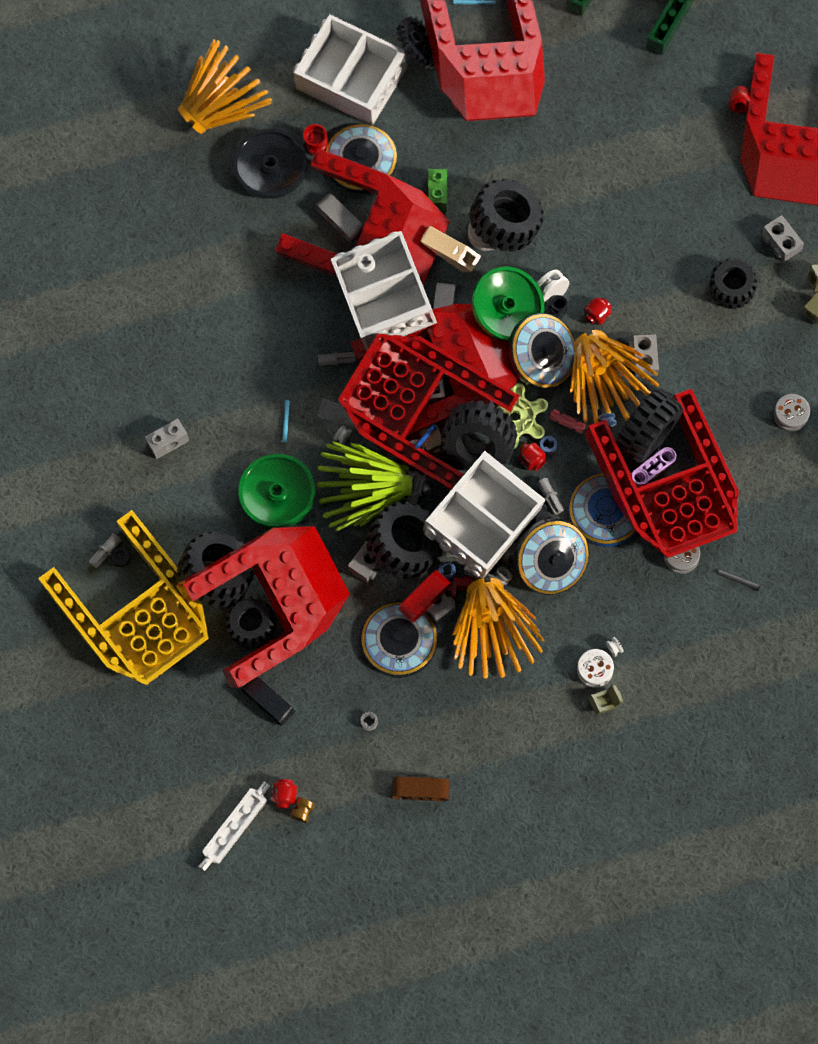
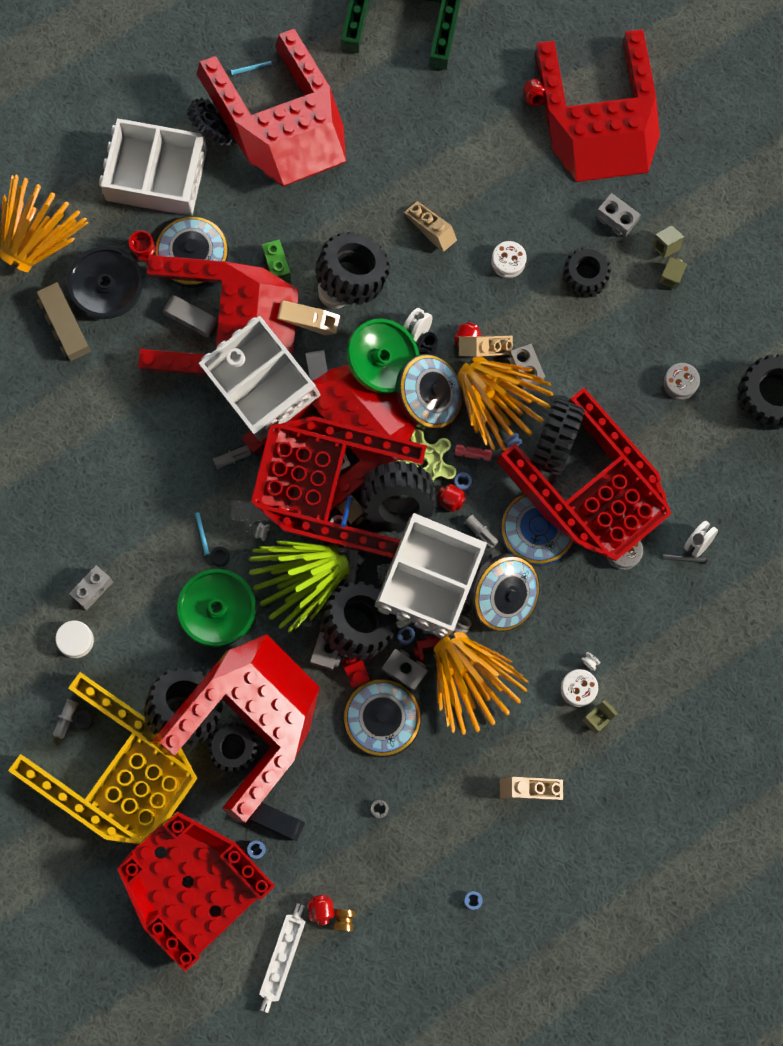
camera: 25 degrees left, 5 degrees up
(136, 481) = (74, 639): none -> white head
(201, 732) = (180, 914): none -> red wedge
(220, 189) = (63, 321): none -> dark tan brick
(236, 723) = (250, 852): none -> medium blue bush
(295, 446) = (220, 556): none -> black tile
(388, 588) = (355, 671): none -> red bracket
(420, 788) = (451, 861): reddish brown beam -> none
(424, 596) = (395, 670): red beam -> none
(435, 832) = (467, 900): none -> medium blue bush
(518, 745) = (531, 788): none -> tan slope
(598, 198) = (432, 226): none -> tan slope
(611, 323) = (485, 345): none -> tan slope
(661, 466) = (571, 466): lavender beam -> none
(662, 250) = (508, 259): none -> white head
(759, 564) = (700, 539): none -> white head

